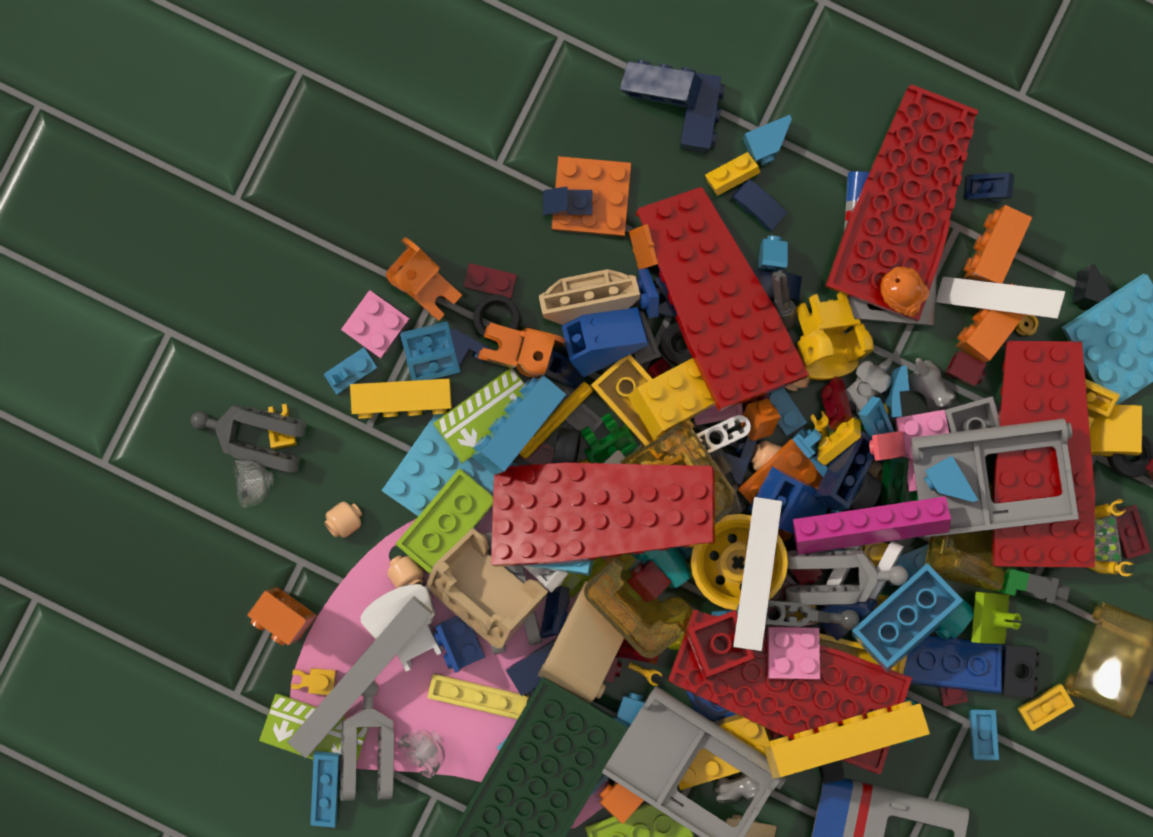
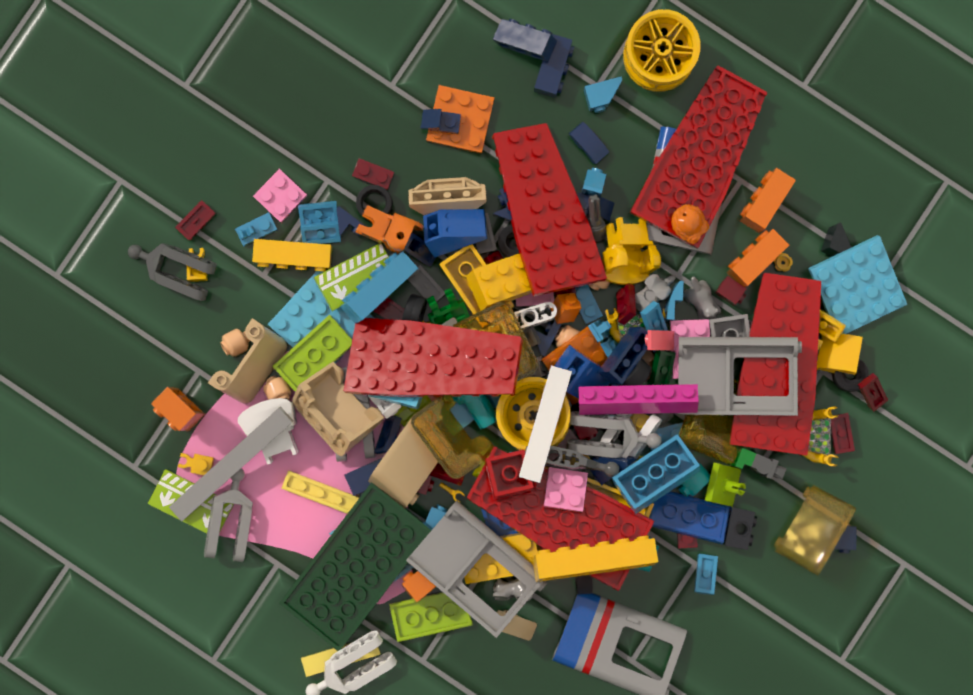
camera: 10 degrees right, 0 degrees up
(252, 482) = (168, 304): clear cylinder -> none
(271, 370) = (195, 220): none -> dark red plate
(325, 789) = (193, 547): dark azure plate -> none
(374, 547) = (254, 367): none -> tan windscreen
(421, 279) = (320, 166): orange piece -> none
(423, 750) = (272, 527): clear cylinder -> none
(459, 643) = (311, 449): blue bracket -> none
(556, 419) = (408, 287): yellow axle -> none
(643, 247) = (494, 163): orange piece -> none
(648, 293) = (492, 199): blue plate -> none
(648, 580) = (462, 420): dark red brick -> none
(732, 173) = (571, 116): yellow plate -> none
(840, 440) = (626, 330): yellow plate -> none
(855, 43) = (650, 25): none -> yellow wheel
(949, 480) = (703, 373): dark azure slope -> none
(989, 187) = (768, 152): dark blue slope -> none
(1001, 297) = (762, 238): white sticker -> none
(1045, 707) = (757, 559): yellow plate -> none

